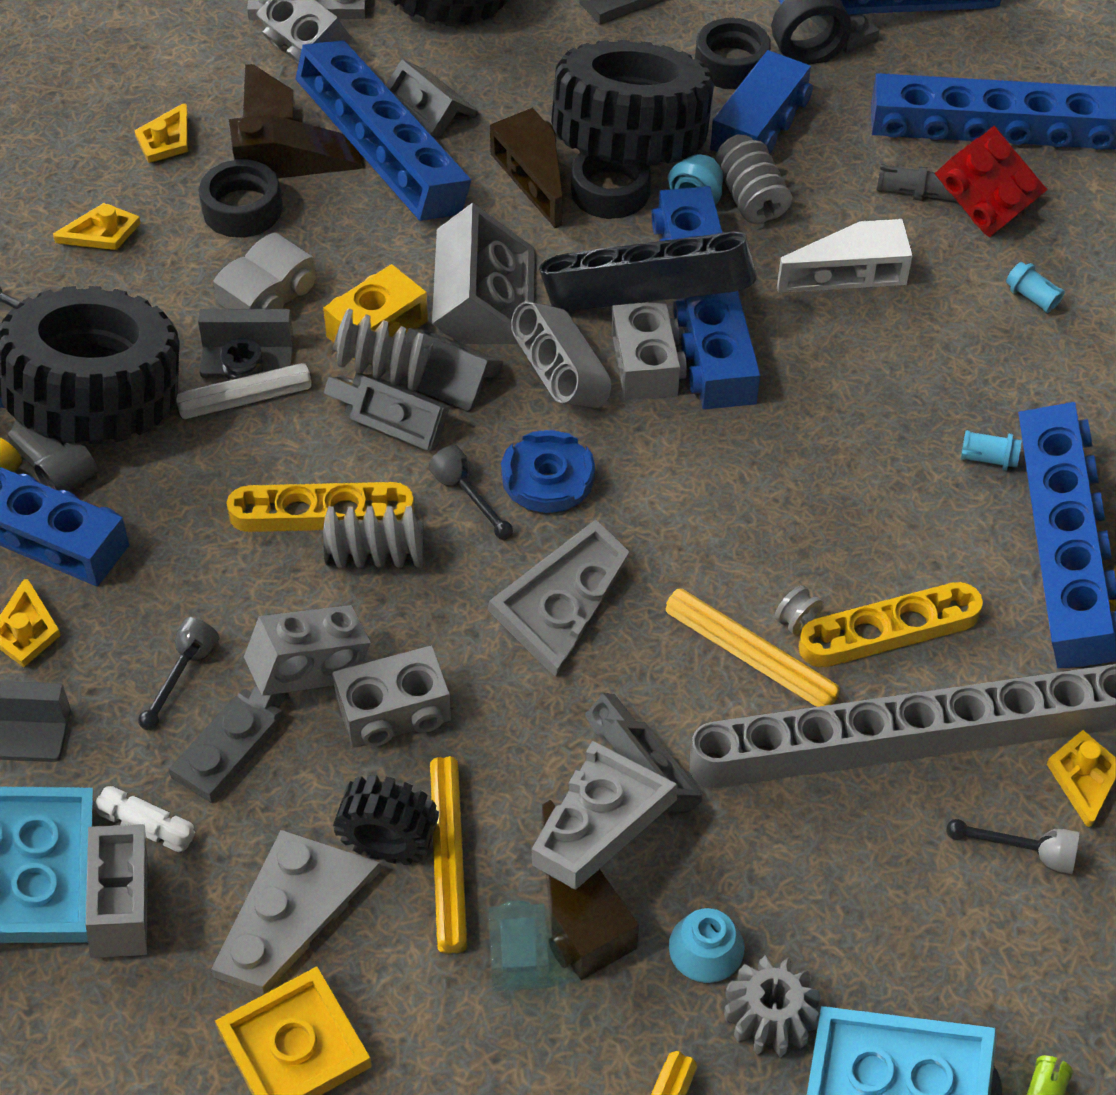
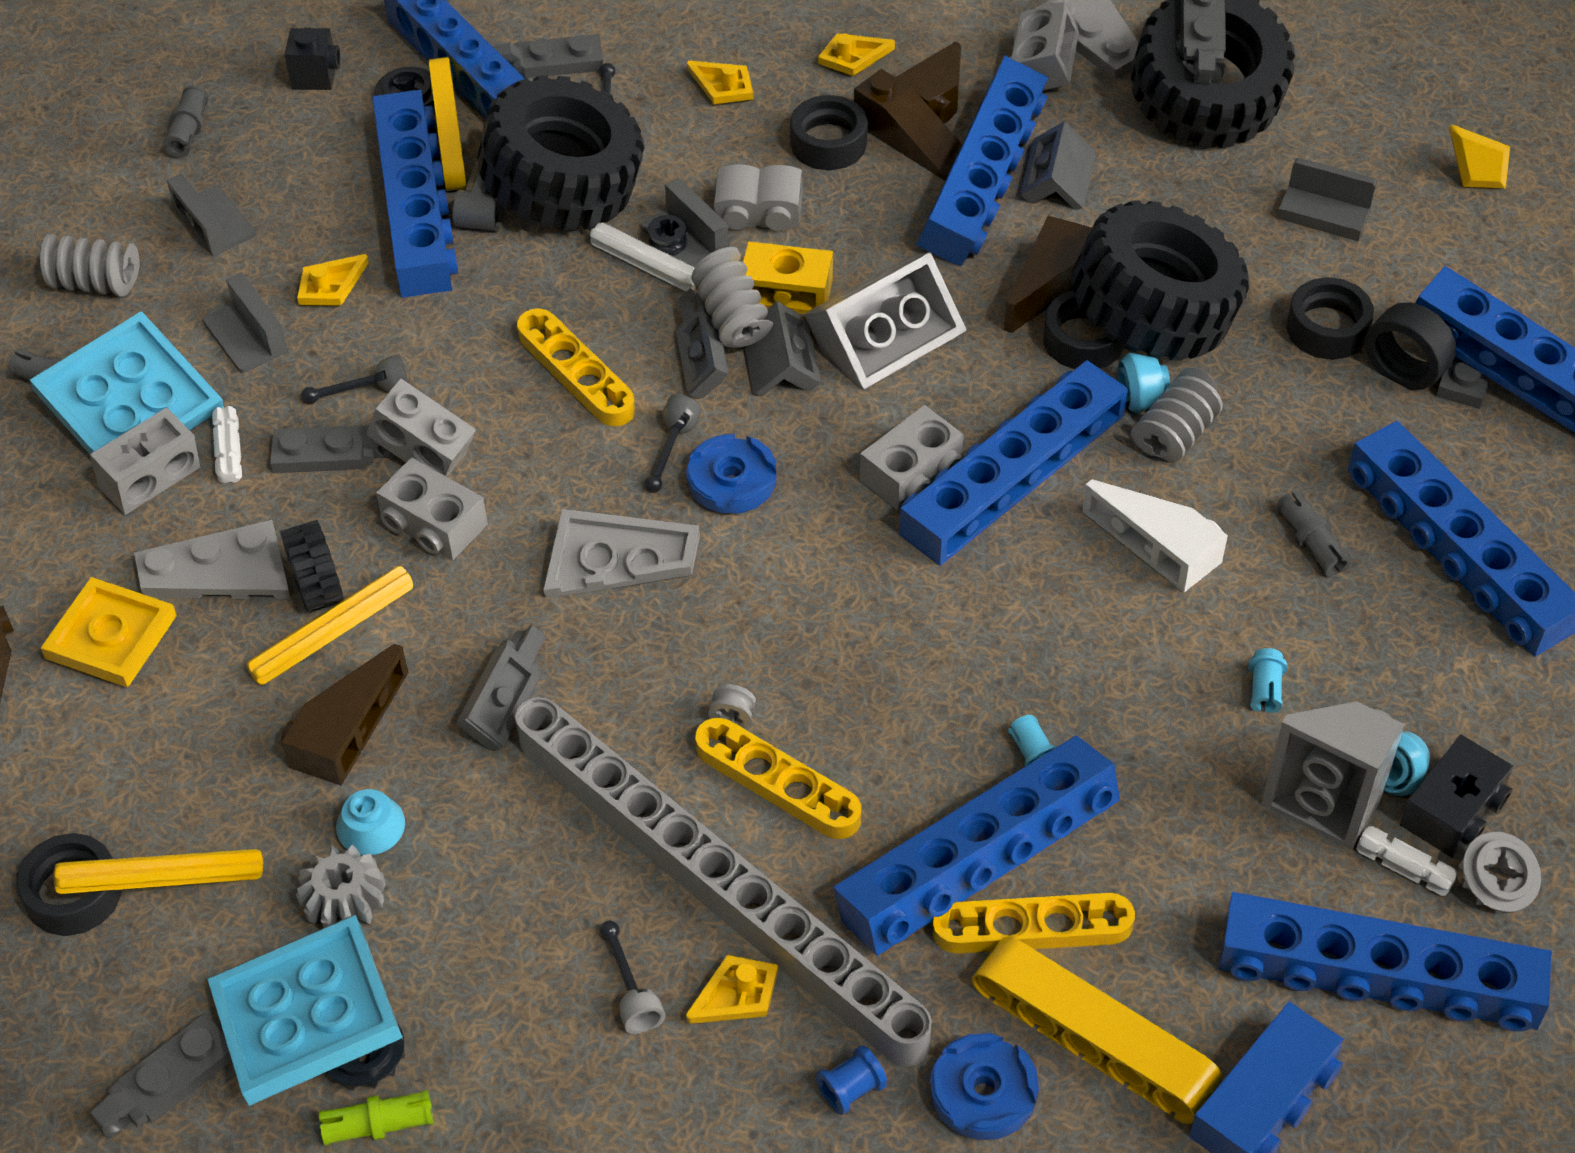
camera: 55 degrees right, 0 degrees up
(373, 537) = (566, 410): light grey piece -> none
(518, 946) = (271, 704): clear light blue brick -> none
(560, 355) = (849, 408): light grey beam -> none
(600, 815) = (412, 681): light grey wing -> none
(649, 272) = (973, 402): black beam -> none
(752, 649) = (671, 701): yellow axle -> none
(764, 101) = (1281, 372): blue brick -> none
(990, 181) = (1358, 576): red plate -> none

